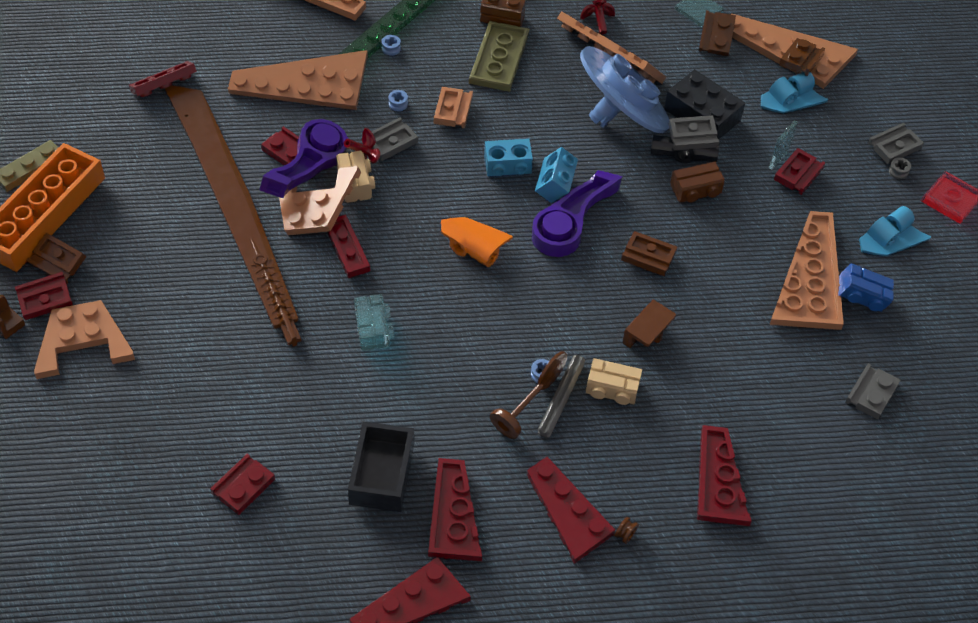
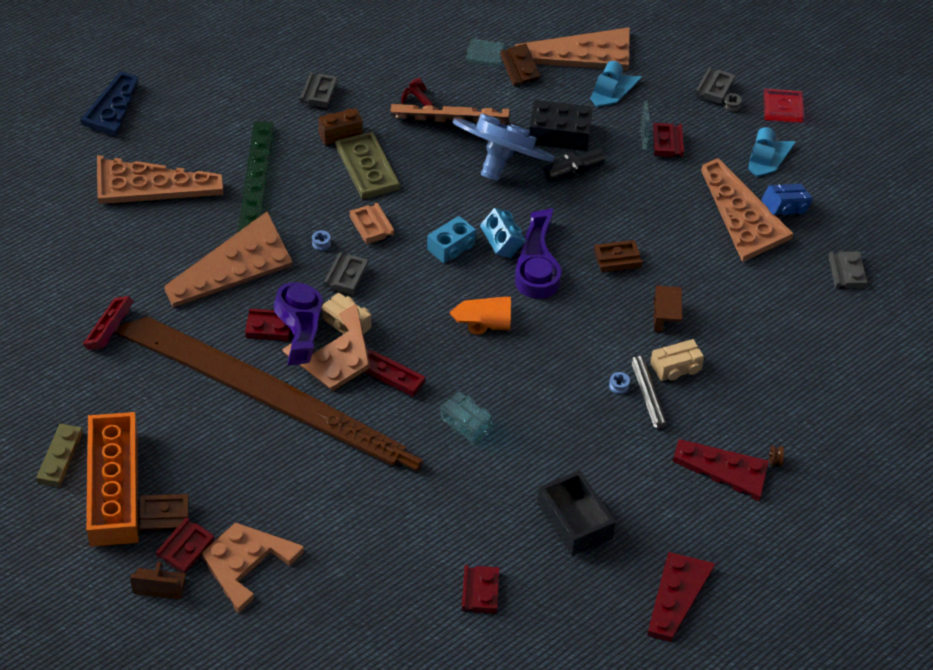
camera: 35 degrees left, 5 degrees down
(368, 141) = (333, 287): dark red plant -> none
(391, 40) = (276, 203): medium blue bush -> none
(453, 520) = (653, 520): dark red wing -> none
(505, 421) = (632, 430): reddish brown piece -> none
(693, 132) = (577, 148): dark grey plate -> none
(697, 182) = (606, 185): reddish brown brick -> none
(719, 480) = (804, 386): dark red wing -> none
(801, 56) = (600, 52): reddish brown plate -> none

